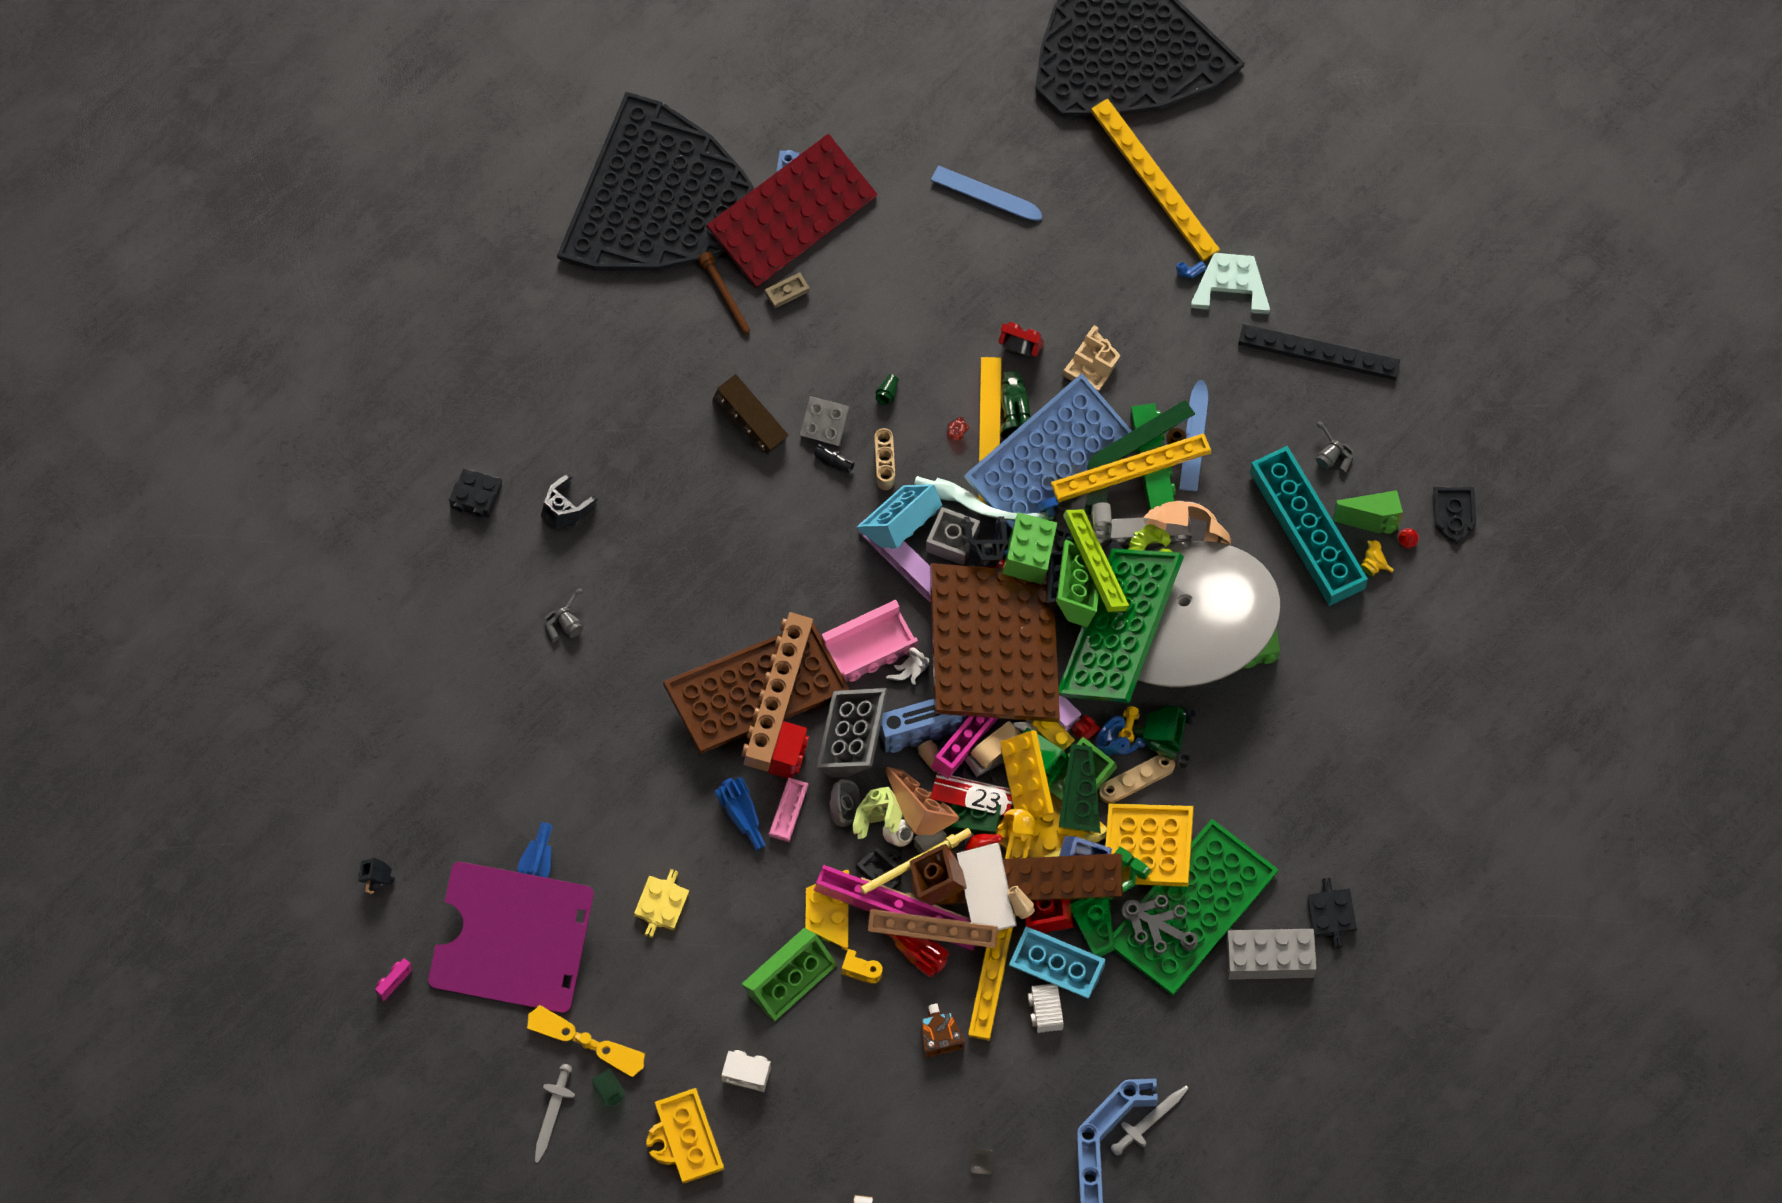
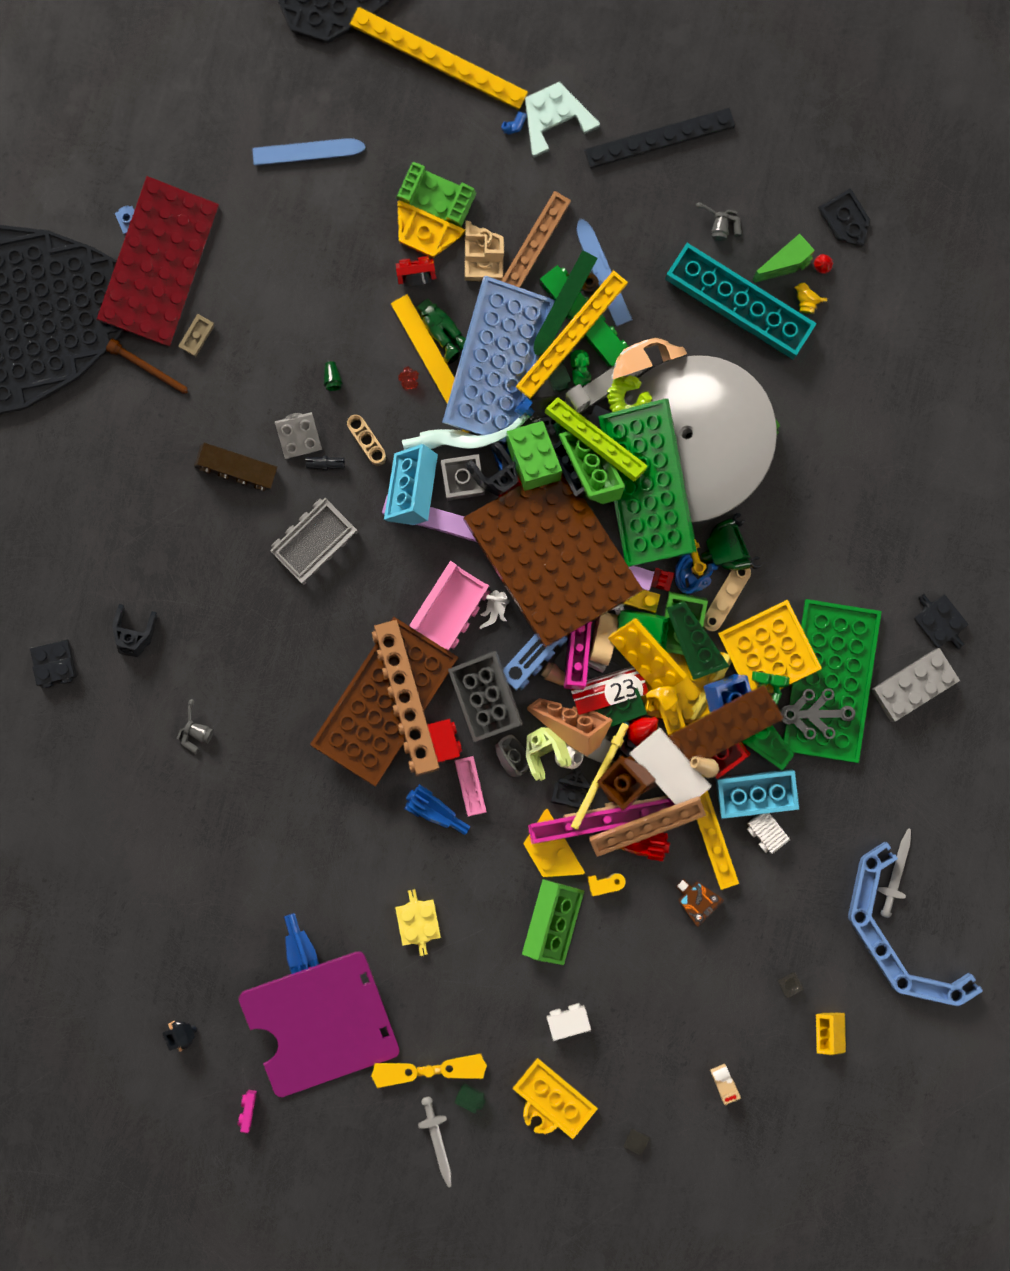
camera: 30 degrees left, 20 degrees up
(780, 516) = (313, 540): none -> window
(1051, 314) = (425, 231): none -> yellow wing
(1079, 289) = (436, 195): none -> bright green plate
(1125, 499) = (579, 362): none -> green piece
(1151, 375) = (536, 240): none -> medium nougat plate

